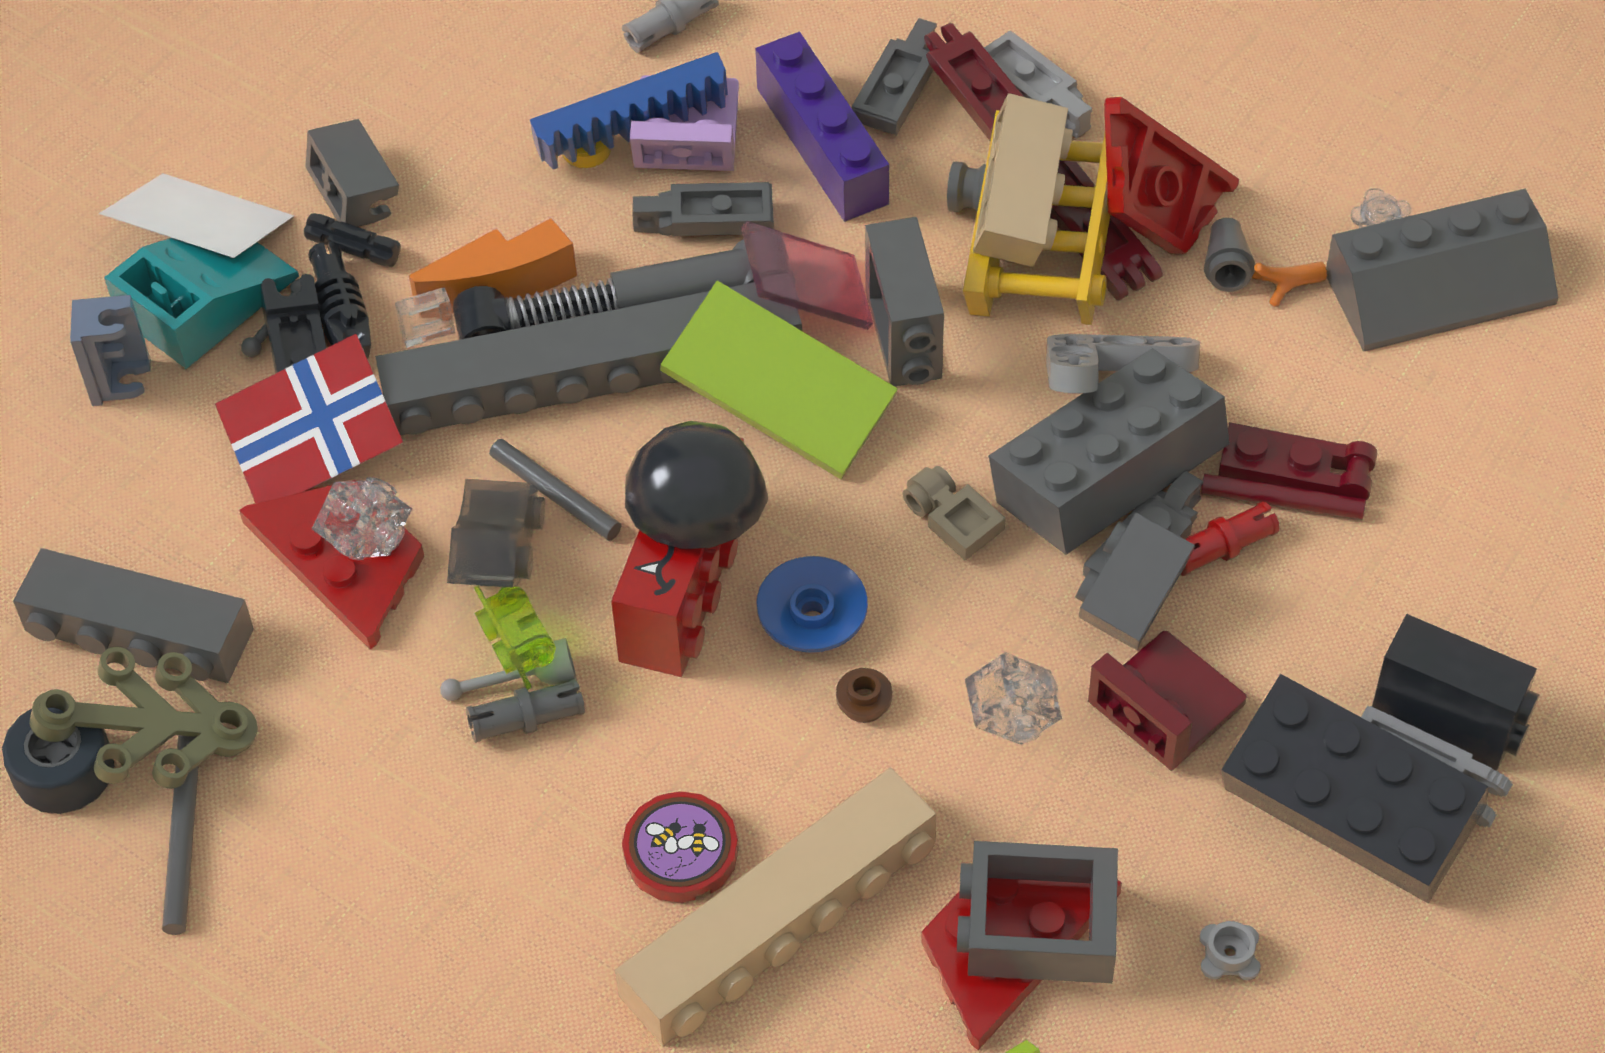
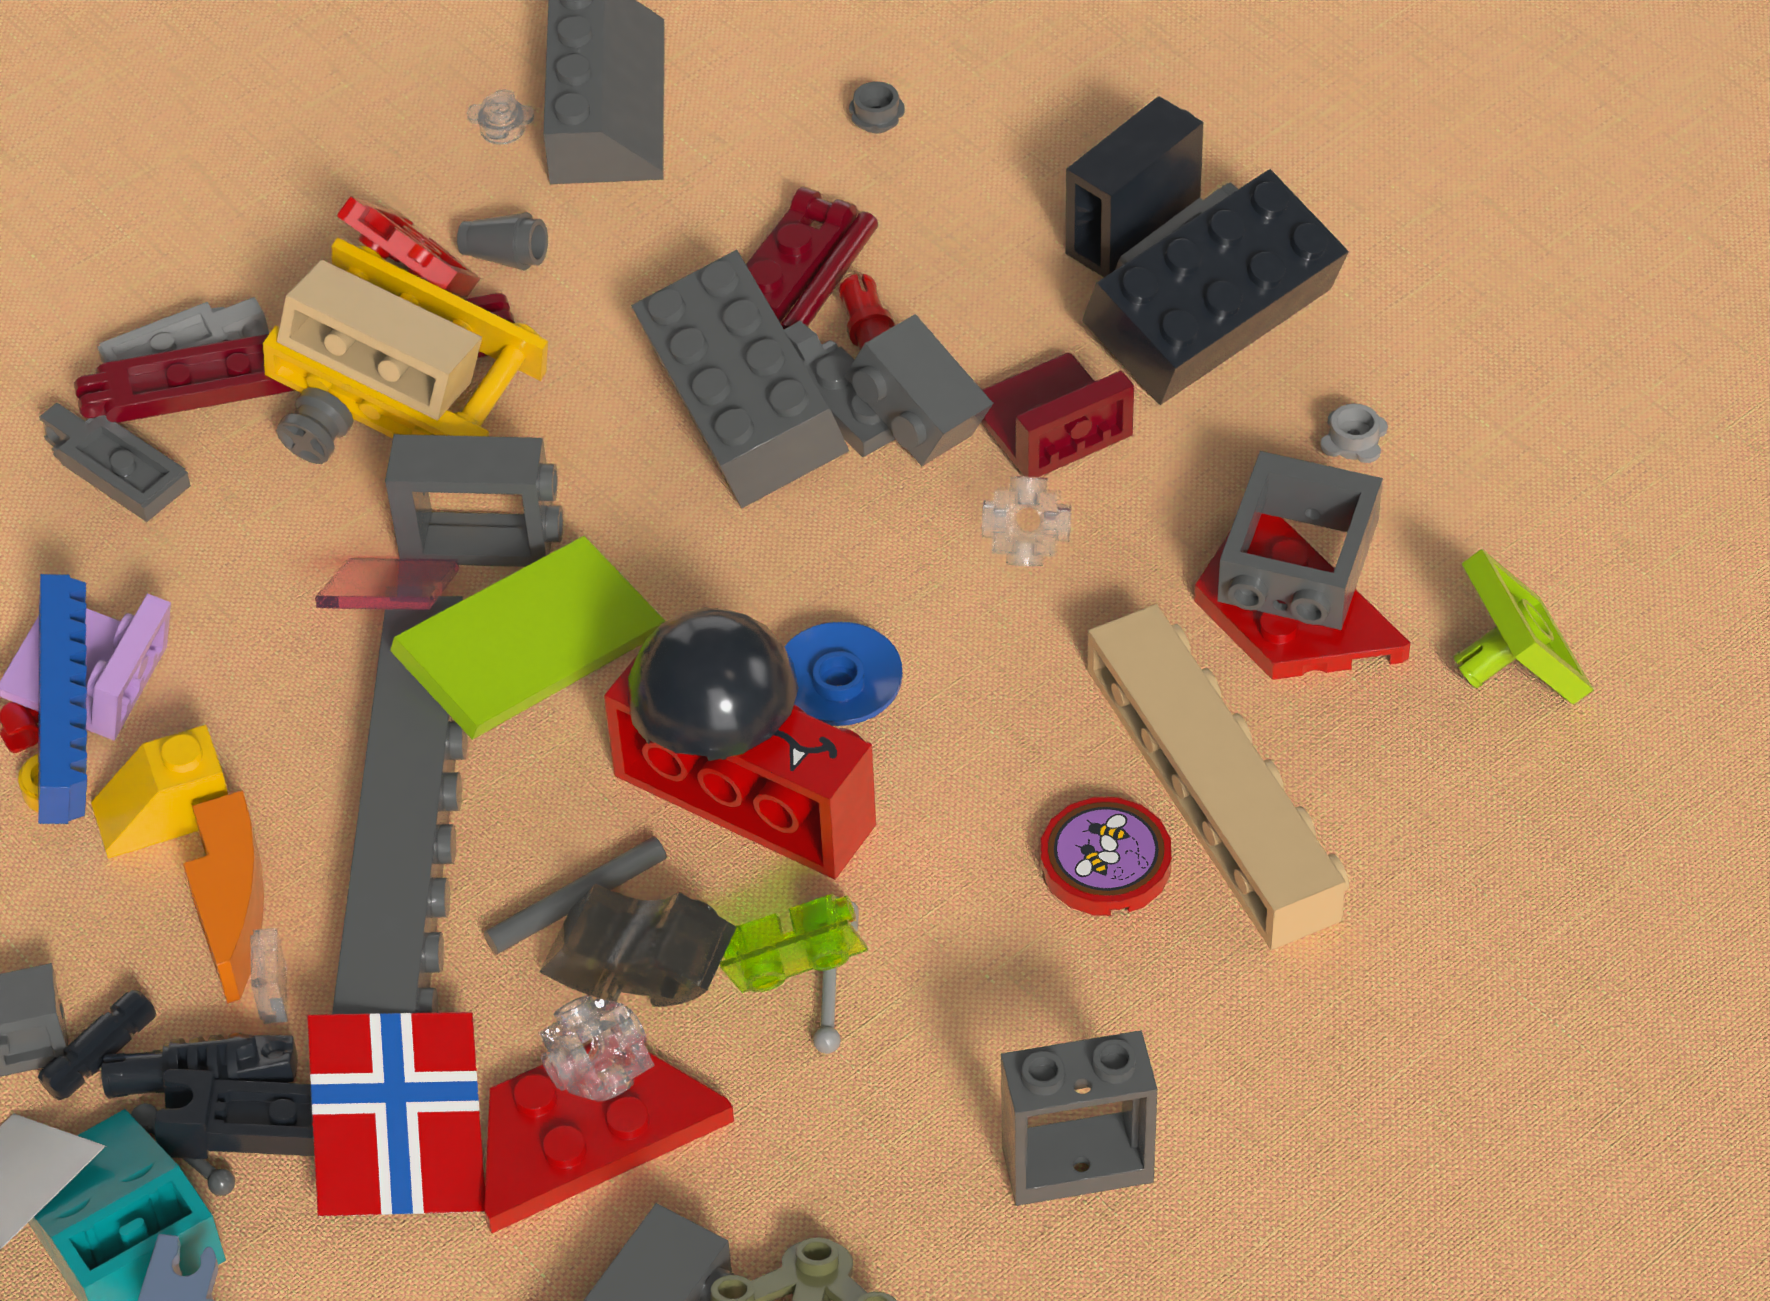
camera: 75 degrees left, 5 degrees down
(363, 859) = (1113, 1145): none -> dark grey window
(486, 311) = (326, 771): piece -> none
(525, 710) = (887, 965): dark grey pin -> none
(583, 210) = (156, 791): none -> yellow slope
(704, 209) = (229, 667): dark grey hinge -> none
(822, 126) = (160, 534): dark purple brick -> none
(864, 707) = (967, 671): reddish brown plate -> none
(959, 519) = (764, 526): dark tan plate -> none
(1076, 358) = (615, 365): light grey beam -> none
(1289, 277) = (551, 202): orange bar -> none
(1508, 470) = (876, 107): none -> dark grey plate

